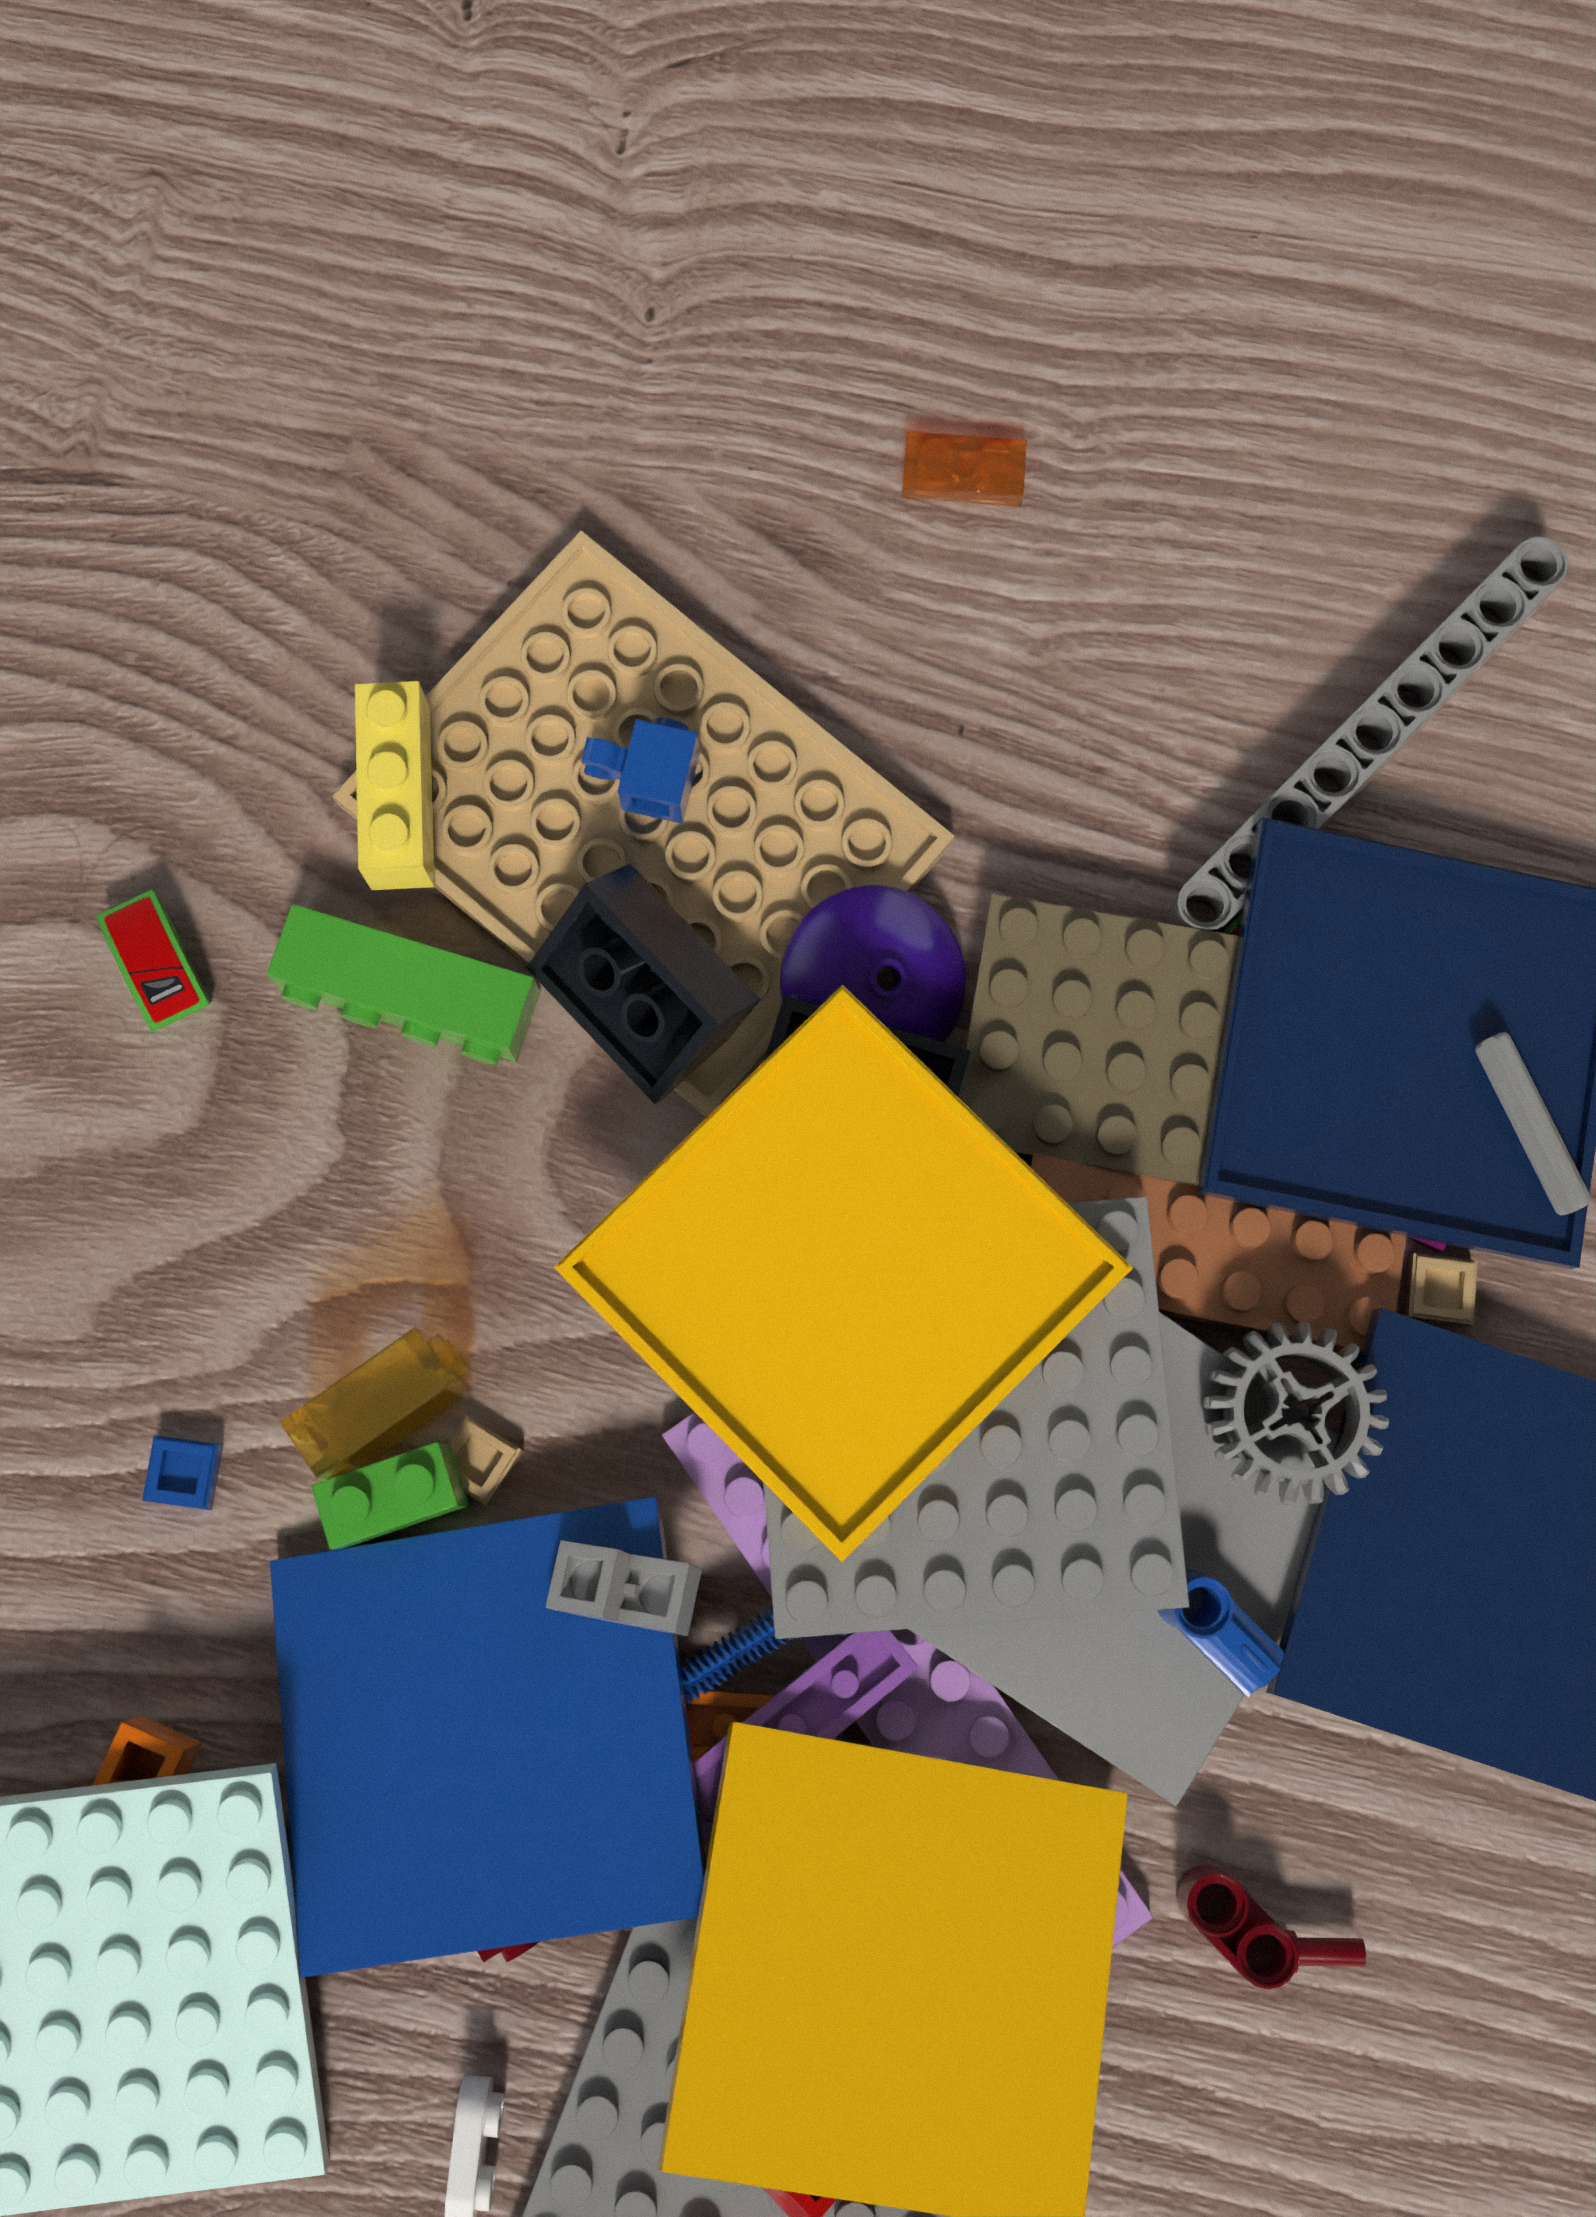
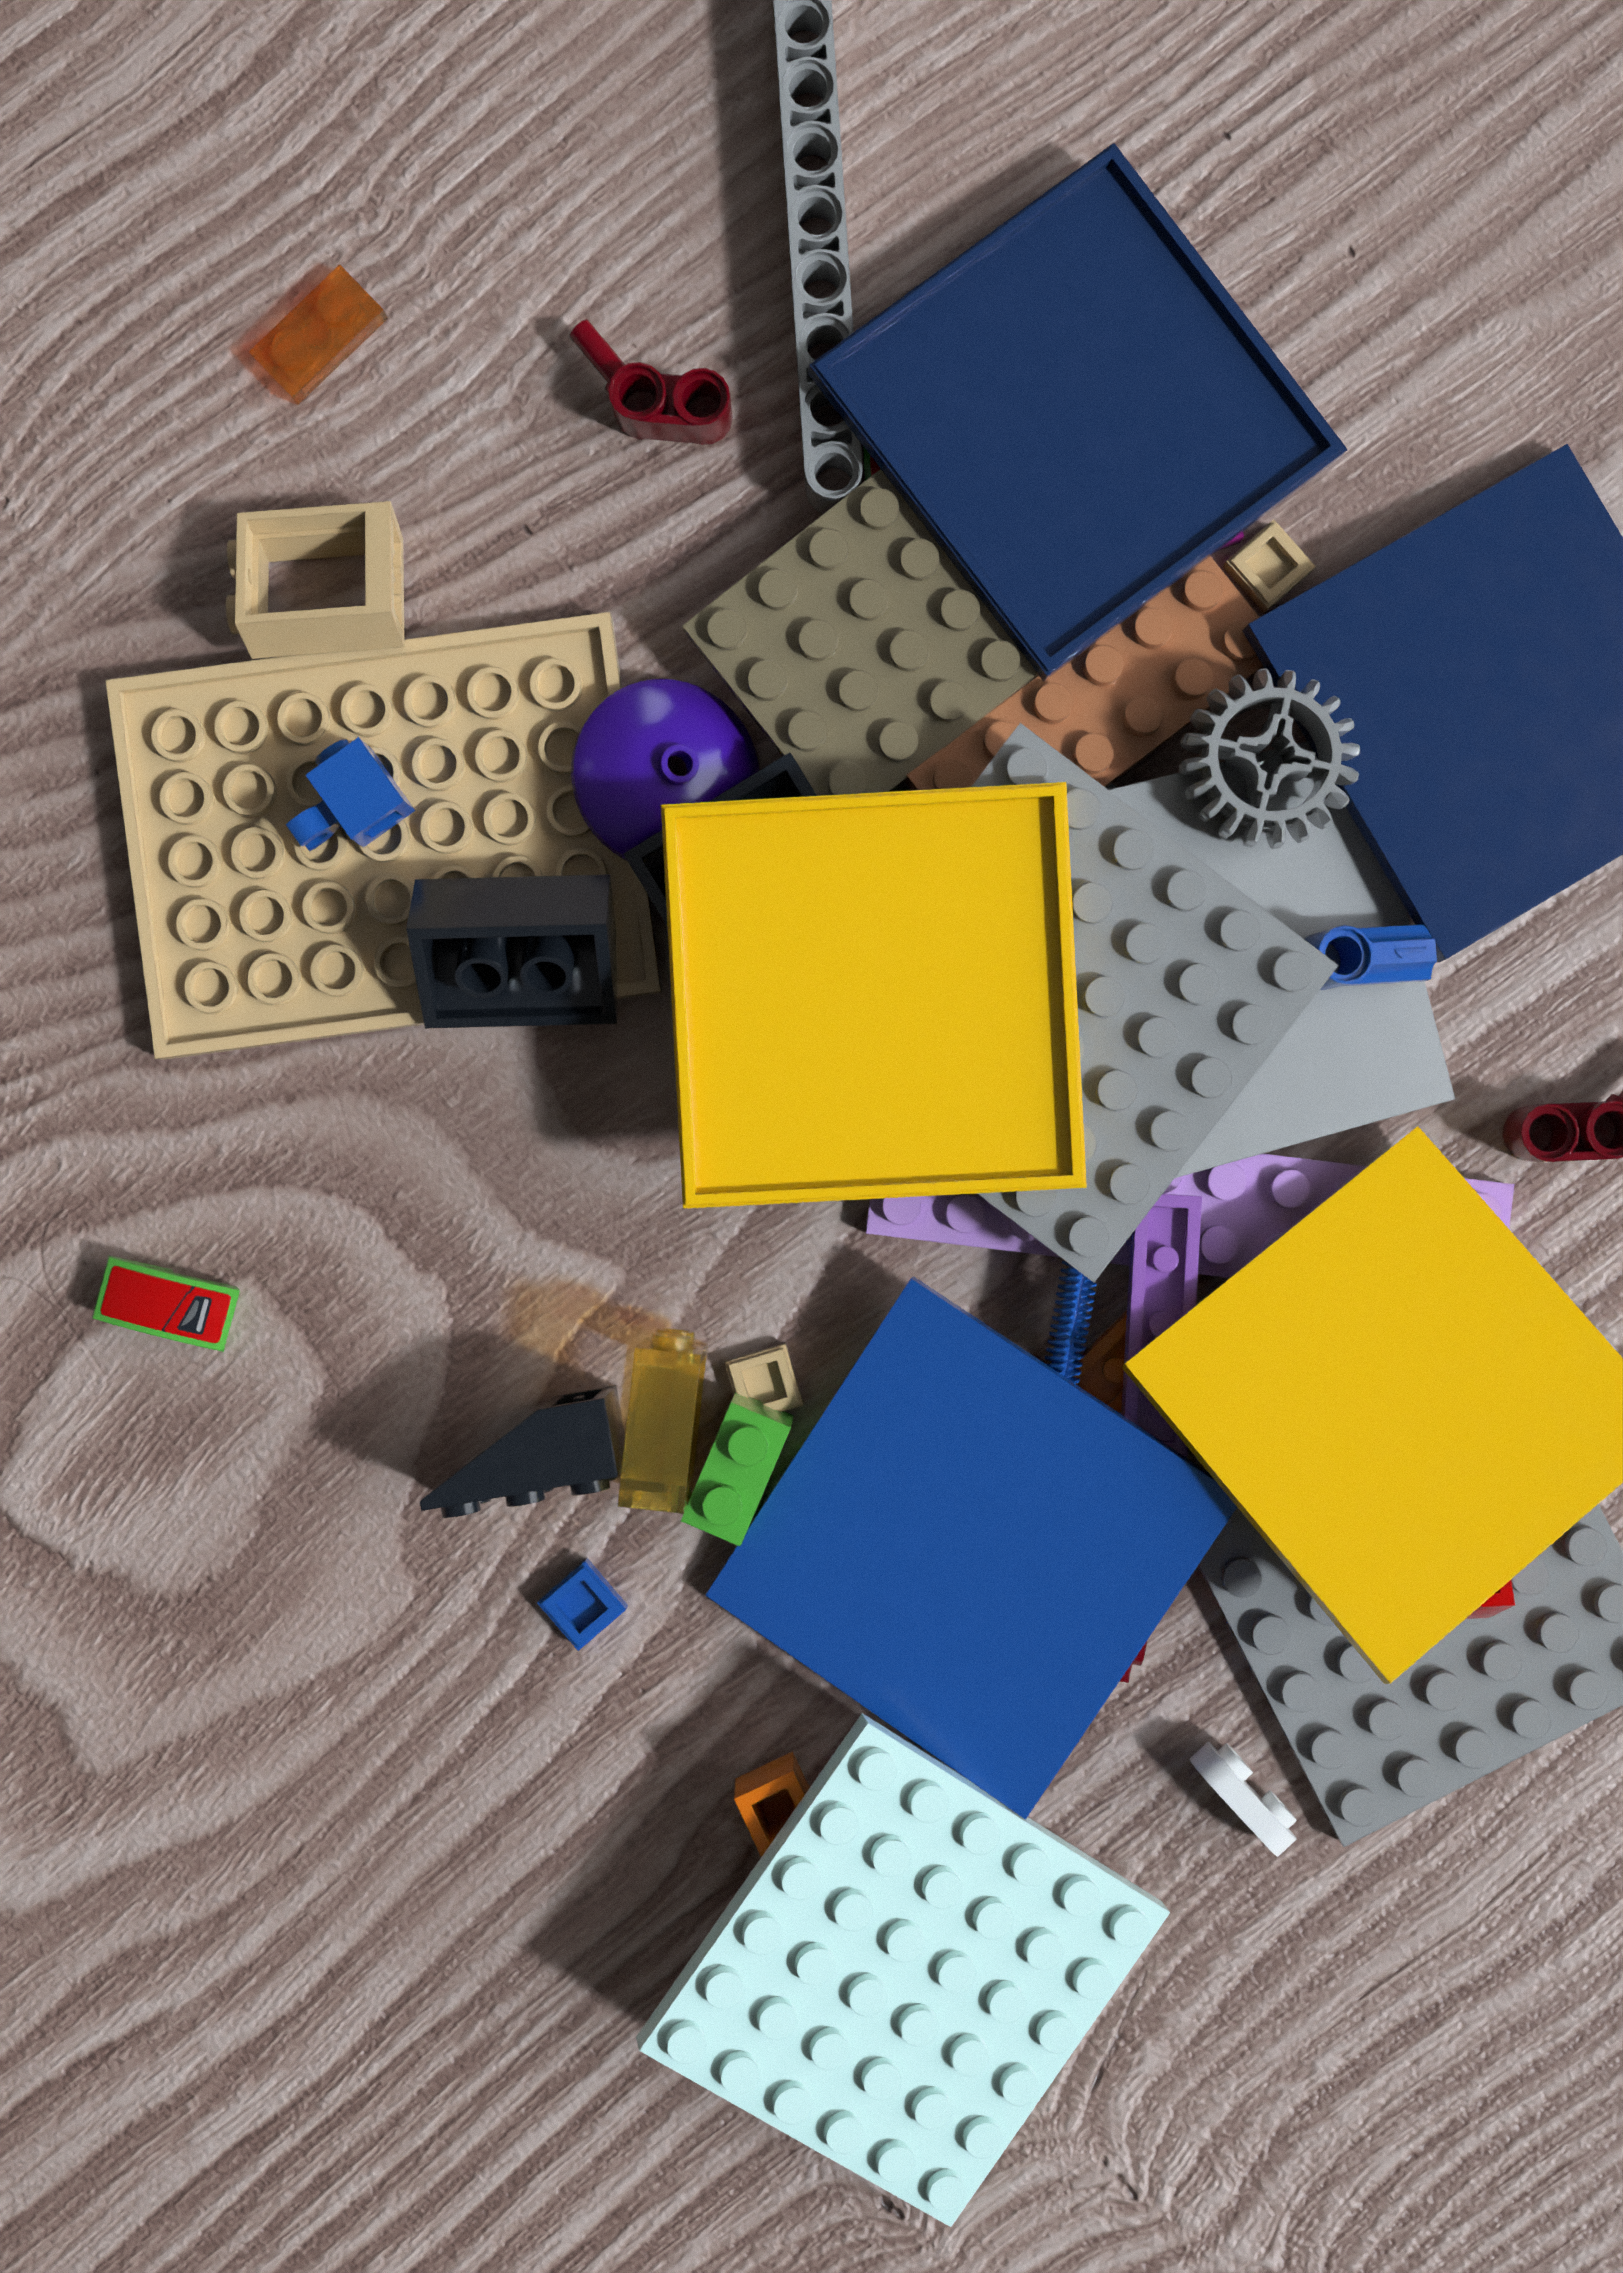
camera: 45 degrees left, 10 degrees up
(282, 1332) = (563, 1443): none -> black slope
(394, 786) = (191, 1004): light yellow brick -> none
(403, 984) = (353, 1131): bright green brick -> none
(624, 1587) = (958, 1358): light grey slope -> none
(818, 582) = (315, 534): none -> tan window
(1152, 746) = (668, 415): none -> dark red beam
(1533, 1124) = (1216, 382): light grey axle -> none

